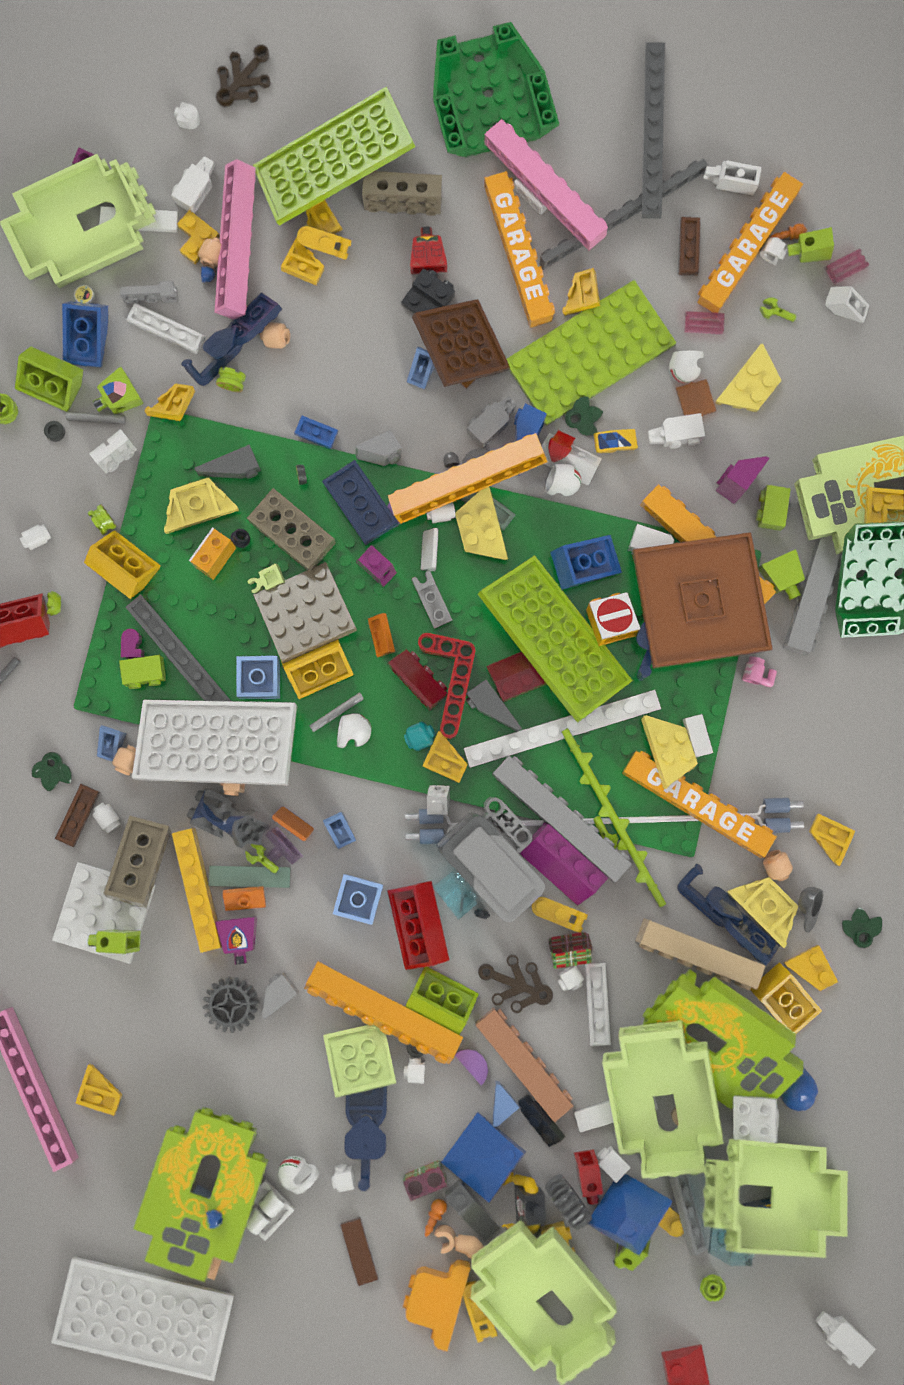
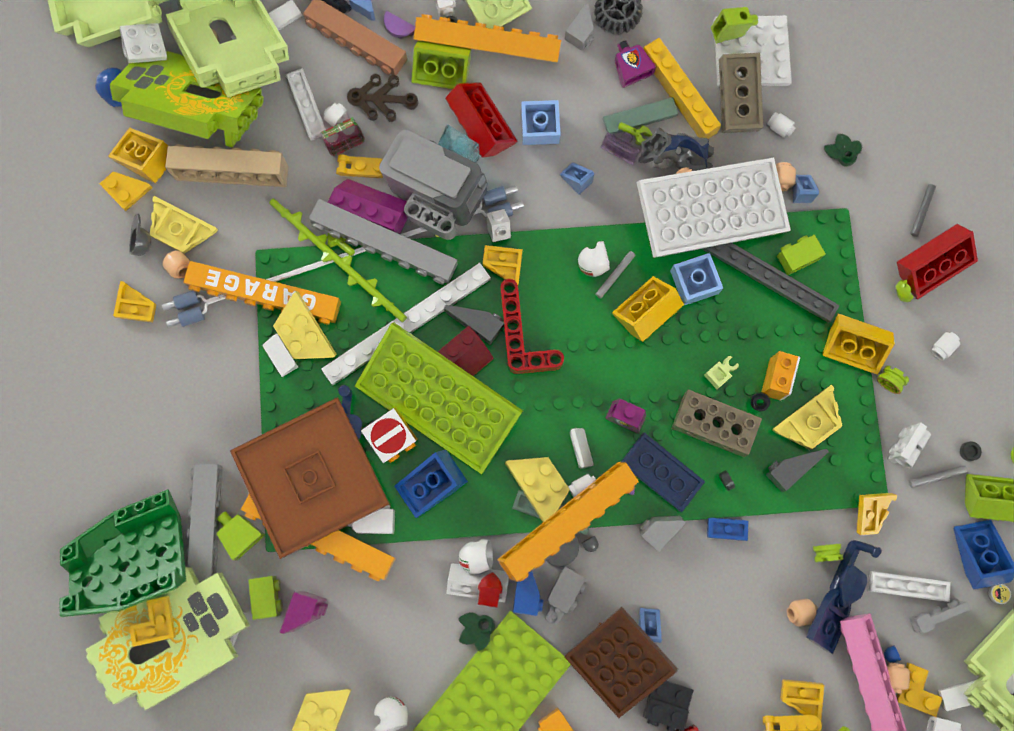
camera: 165 degrees right, 5 degrees down
(77, 815) = (807, 121): reddish brown tile -> none
(117, 393) = (928, 505): lime torso -> none
(130, 644) = (820, 273): magenta leg -> none
(244, 898) = (638, 96): orange plate -> none
(293, 823) = (619, 169): orange slope -> none
(304, 613) = (676, 350): plate -> none
(381, 635) = (599, 354): orange plate -> none
(418, 679) = (552, 322): dark red slope -> none
(419, 736) = (533, 274): teal head -> none
(432, 601) = (563, 401): light grey plate -> none
(615, 440) = (438, 615): slope -> none
(678, 431) = (378, 645): white hinge -> none
(696, 398) = (371, 685): clear orange piece -> none
(725, 913) = (200, 202): dark blue plate -> none
(754, 673) = (242, 431): bright pink piece -> none
(860, 925) = (87, 238): dark green plate -> none

